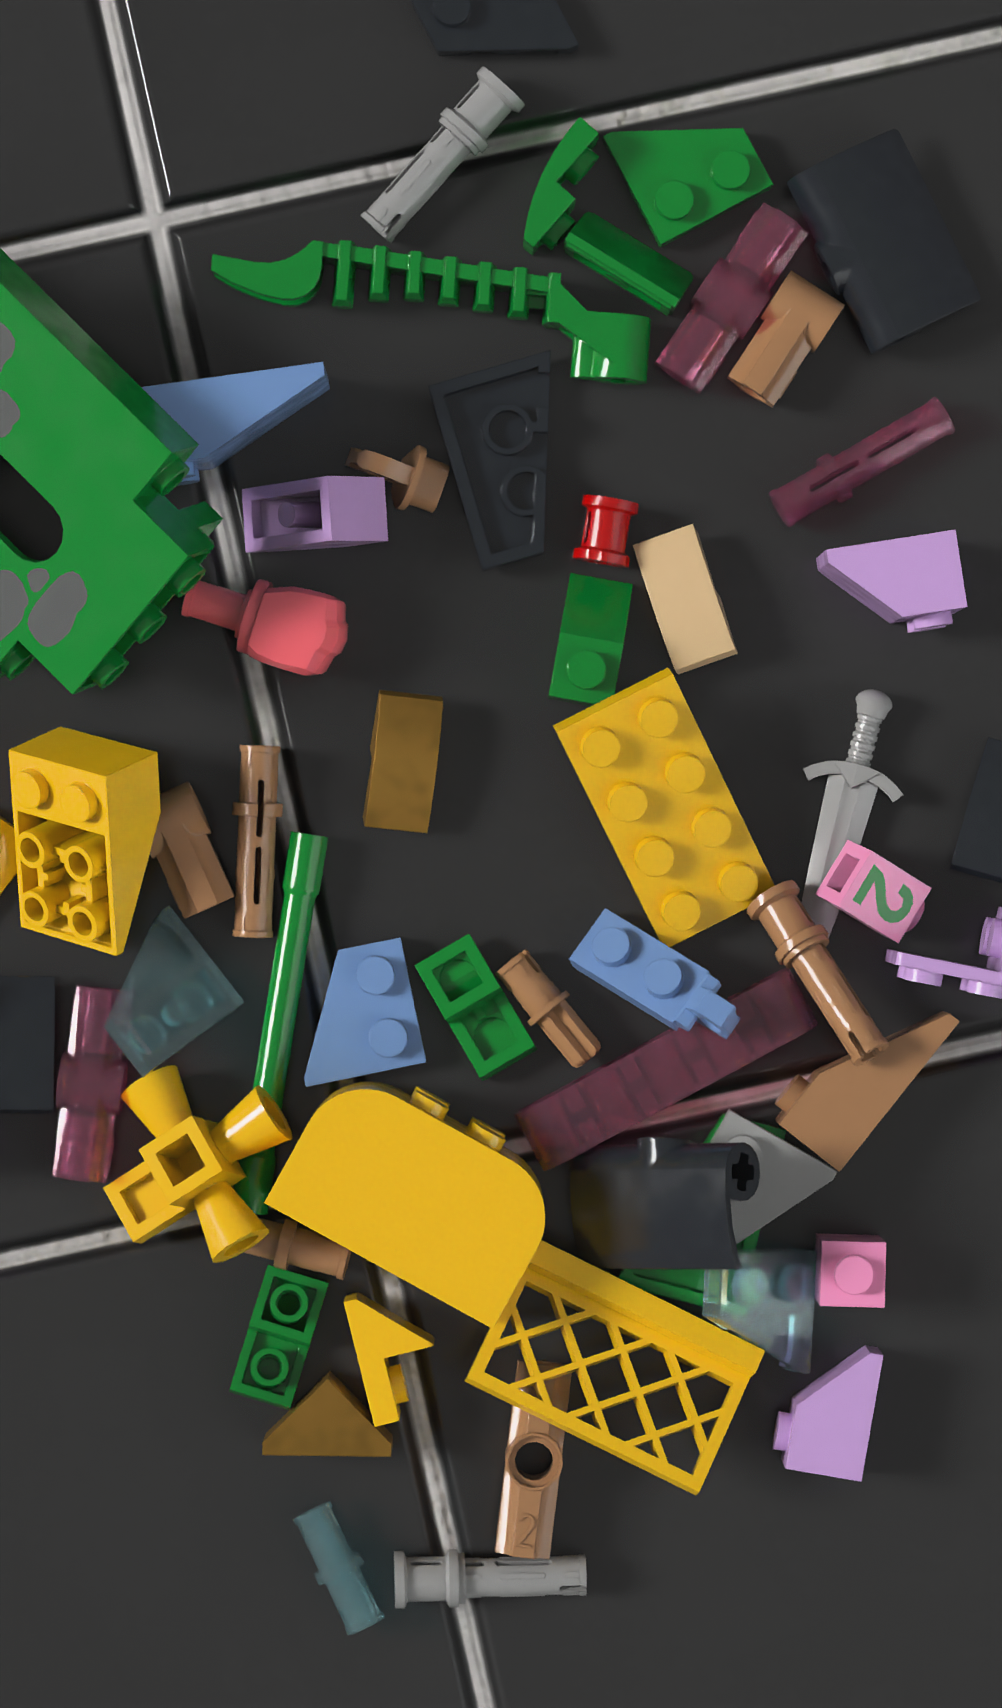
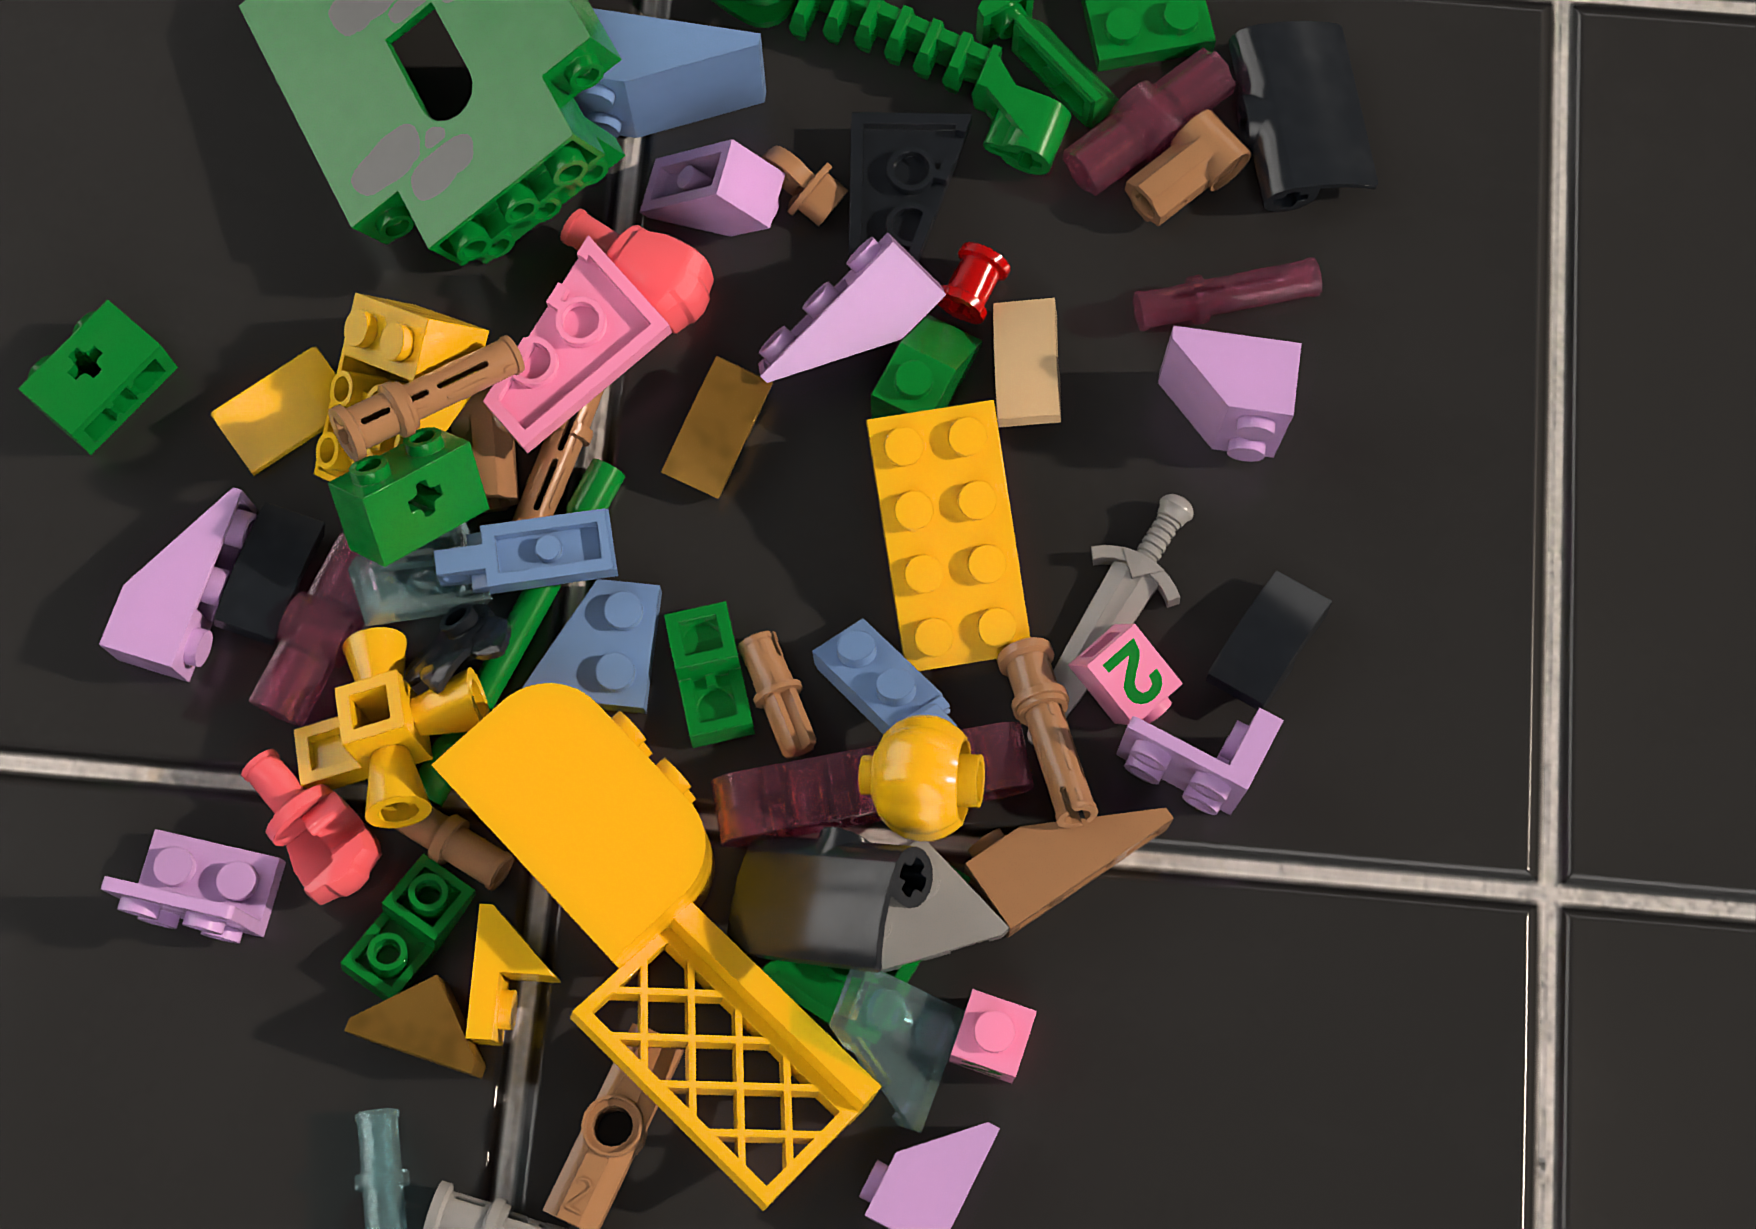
camera: 20 degrees right, 15 degrees down
(74, 1362) = (203, 883): none -> lavender bracket
(111, 871) = (393, 408): none -> medium nougat pin
(142, 945) = (408, 495): none -> green brick
(166, 1276) = (323, 834): none -> coral piece
(234, 1058) = (464, 635): none -> black plate
(245, 738) = (578, 347): none -> bright pink wing
(276, 954) = (532, 553): none -> medium blue hinge
(512, 602) = (866, 309): none -> lavender slope
(718, 1063) = (923, 778): none -> yellow plant

